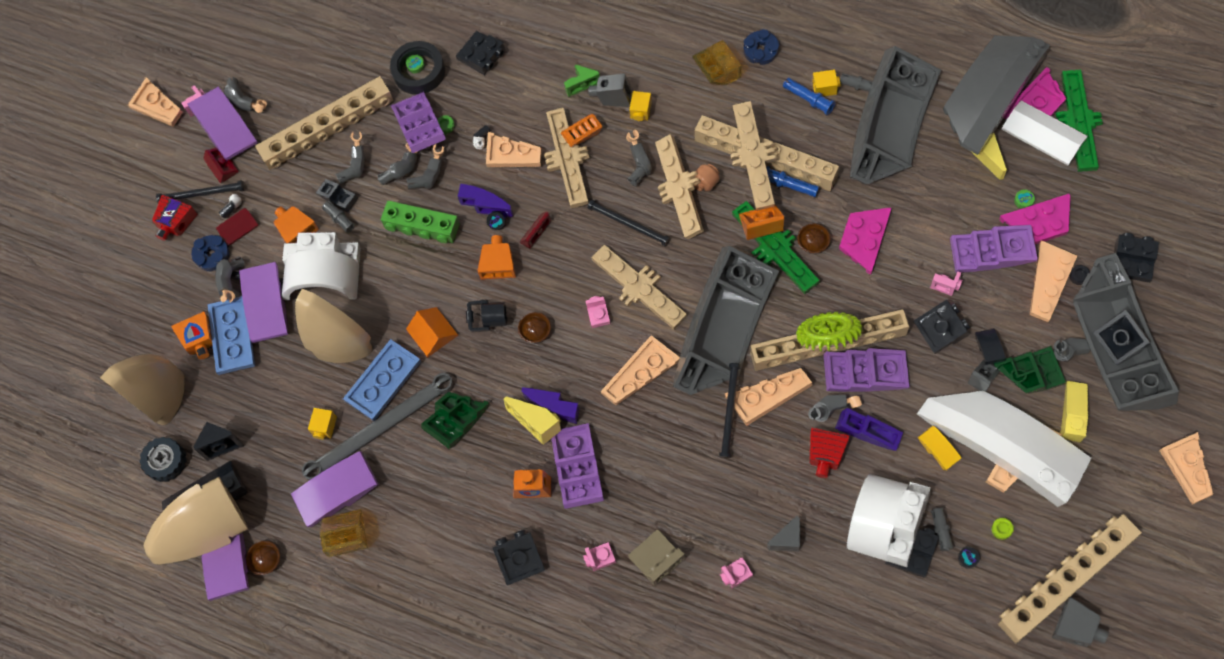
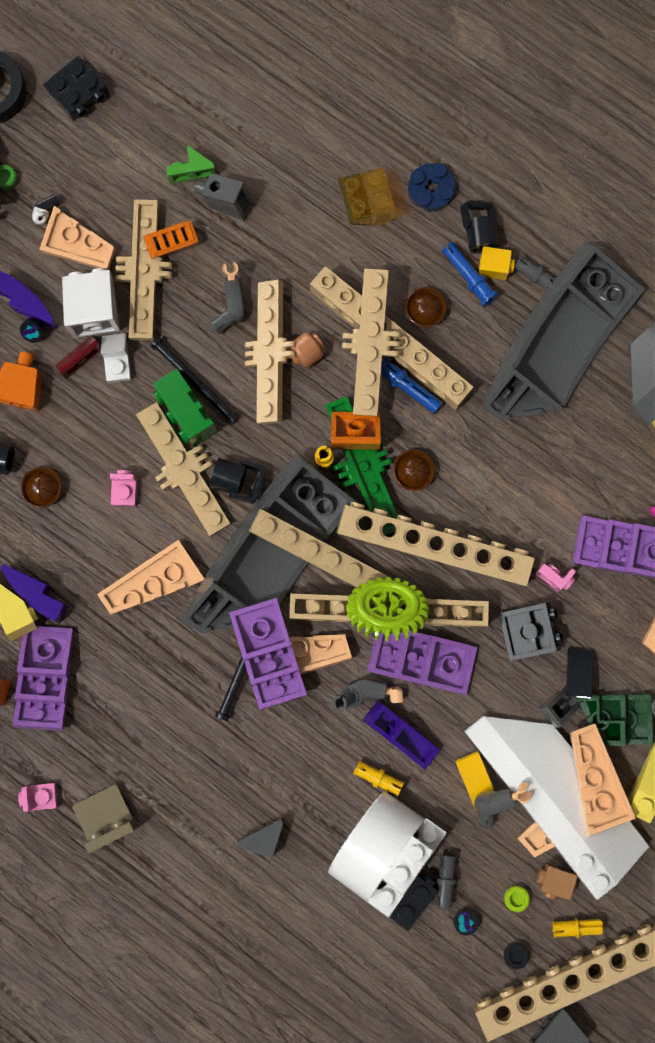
camera: 10 degrees right, 15 degrees up
(535, 190) = (90, 303): none -> white slope
(564, 223) = (116, 358): none -> white slope
(628, 242) = (184, 408): none -> green wedge
(640, 106) = (254, 226): yellow brick -> none
(676, 280) = (230, 478): none -> black piece
(735, 573) = (190, 863): bright pink bracket -> none
(744, 243) = (321, 452): none -> yellow pin
(747, 394) = (268, 654): none -> medium lavender slope
(754, 311) = (312, 550): none -> tan plate
(780, 288) = (520, 561): none -> tan brick
(784, 126) = (425, 307): none -> reddish brown hat
(806, 63) = (480, 230): none -> black piece
(826, 450) = (342, 747): red torso -> none
(862, 467) = (378, 778): none -> yellow pin
(864, 236) = (477, 484): dark pink wing -> none
(960, 451) = (493, 802): none -> dark grey arm
(1017, 572) = (516, 955): none -> black tile
(1029, 505) = (556, 882): none -> medium nougat brick
(1035, 417) = (599, 786): none -> light nougat wing
(1058, 536) = (577, 928): none -> yellow axle

